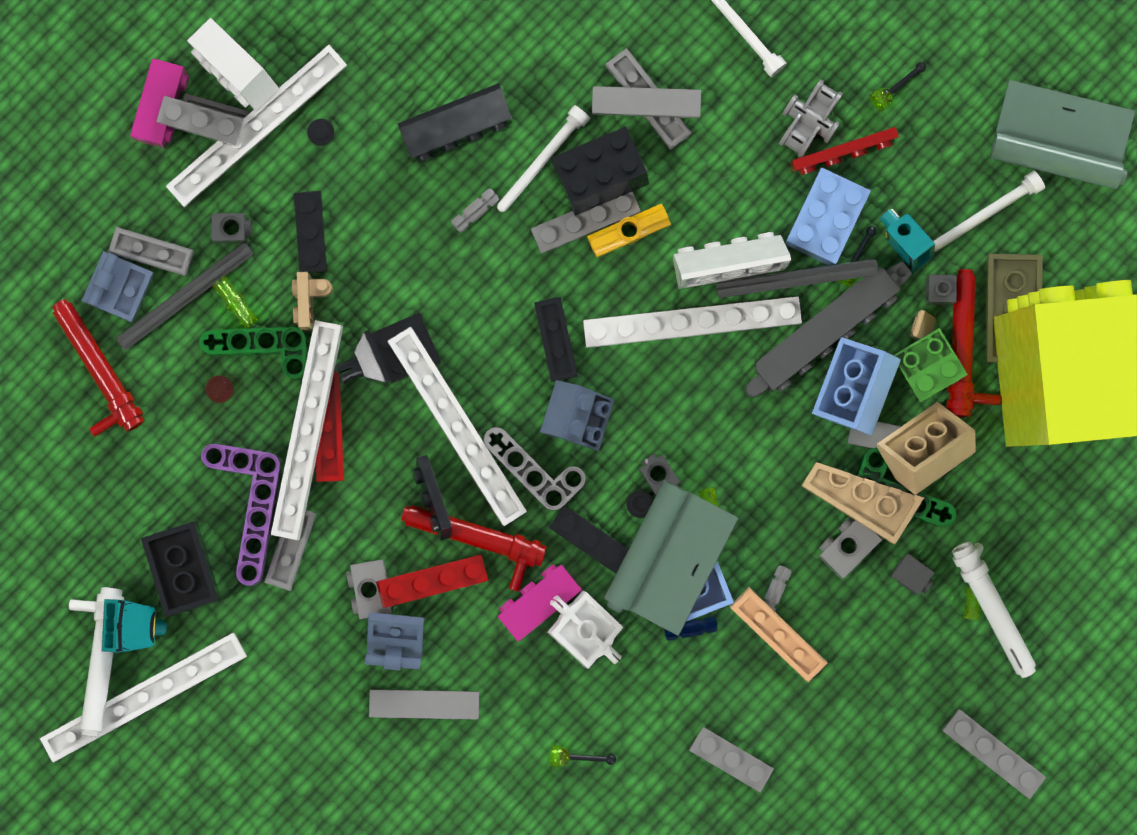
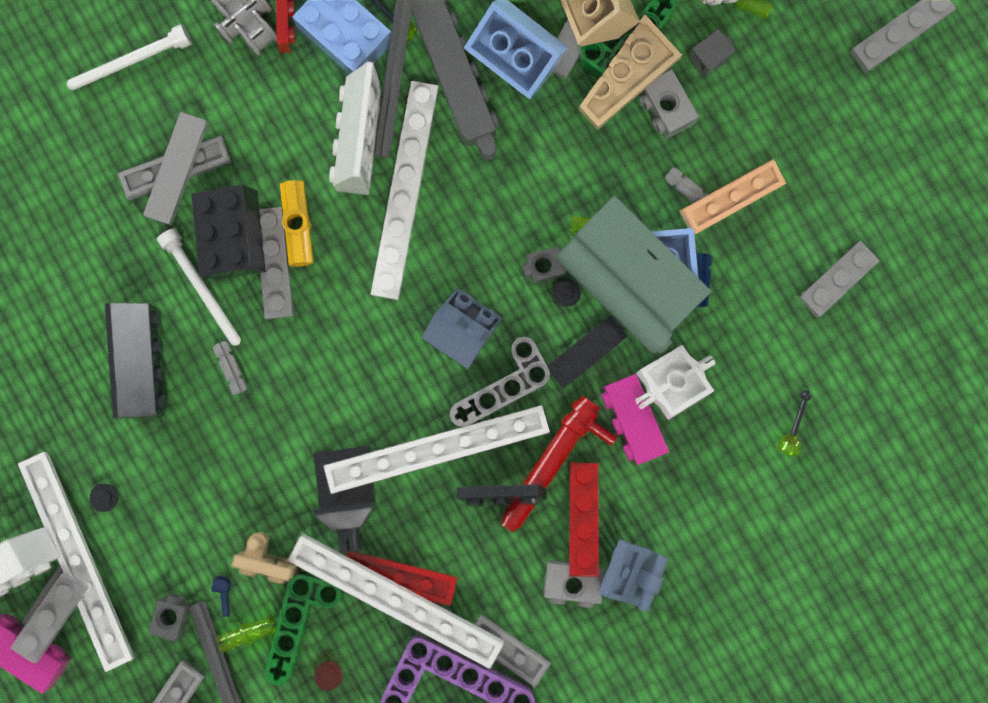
camera: 70 degrees left, 0 degrees up
(272, 266) = (222, 585): none -> dark blue hand
(310, 232) = (200, 537): black plate -> none
(424, 704) = (700, 563): light grey tile -> none
(555, 339) = (381, 326): black plate -> none

